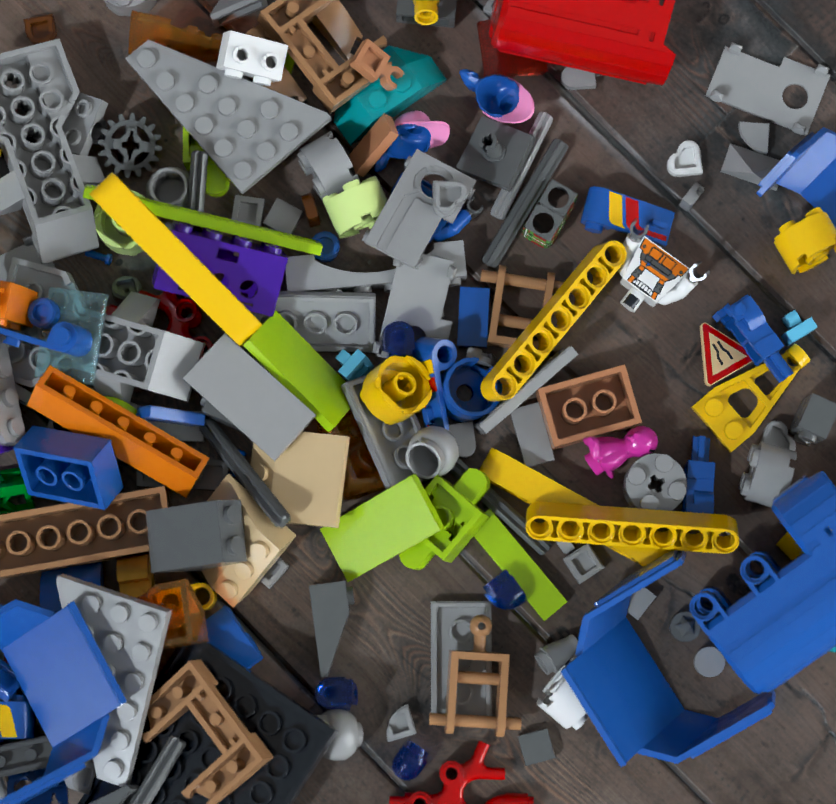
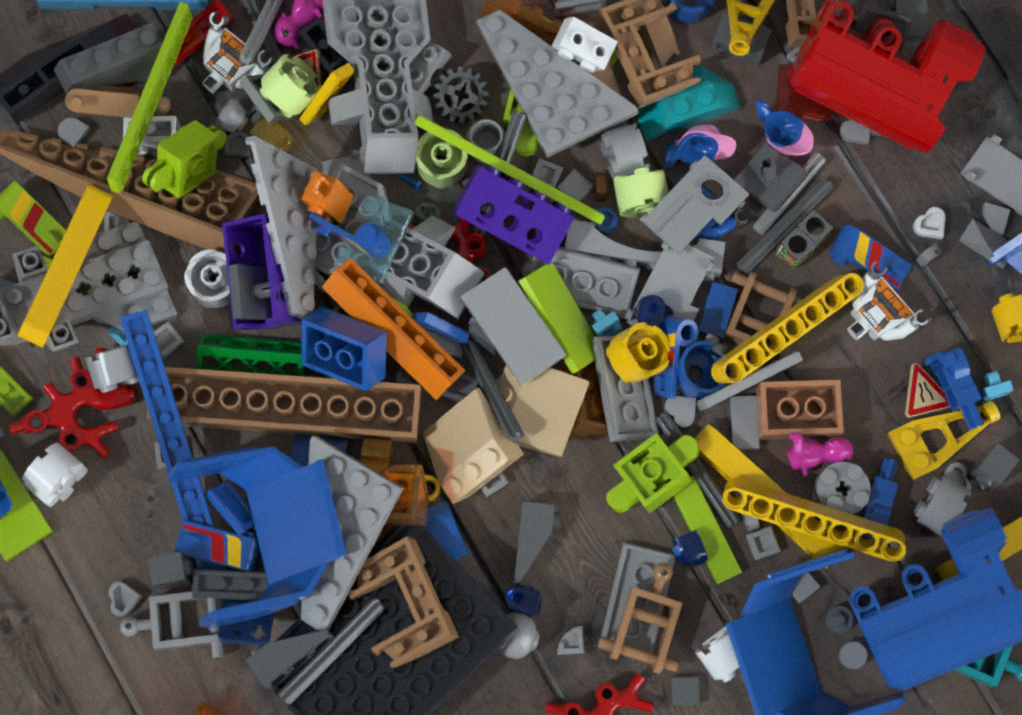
camera: 10 degrees right, 5 degrees down
(43, 313) = (355, 214): blue tile -> none
(82, 780) = (287, 617): light grey tile -> none
(175, 258) = (481, 193): yellow beam -> none
(196, 536) = (439, 432): dark grey slope -> none
(372, 64) = (685, 74): nougat plate -> none
(373, 145) = (668, 144): nougat tile -> none
(382, 528) = (598, 467): lime tile -> none
(409, 761) = (572, 676): clear blue piece -> none
(432, 452) = (656, 413): light grey piece -> none
(447, 196) = (722, 200): light grey tile -> none
(556, 654) = (718, 615): light grey cone -> none

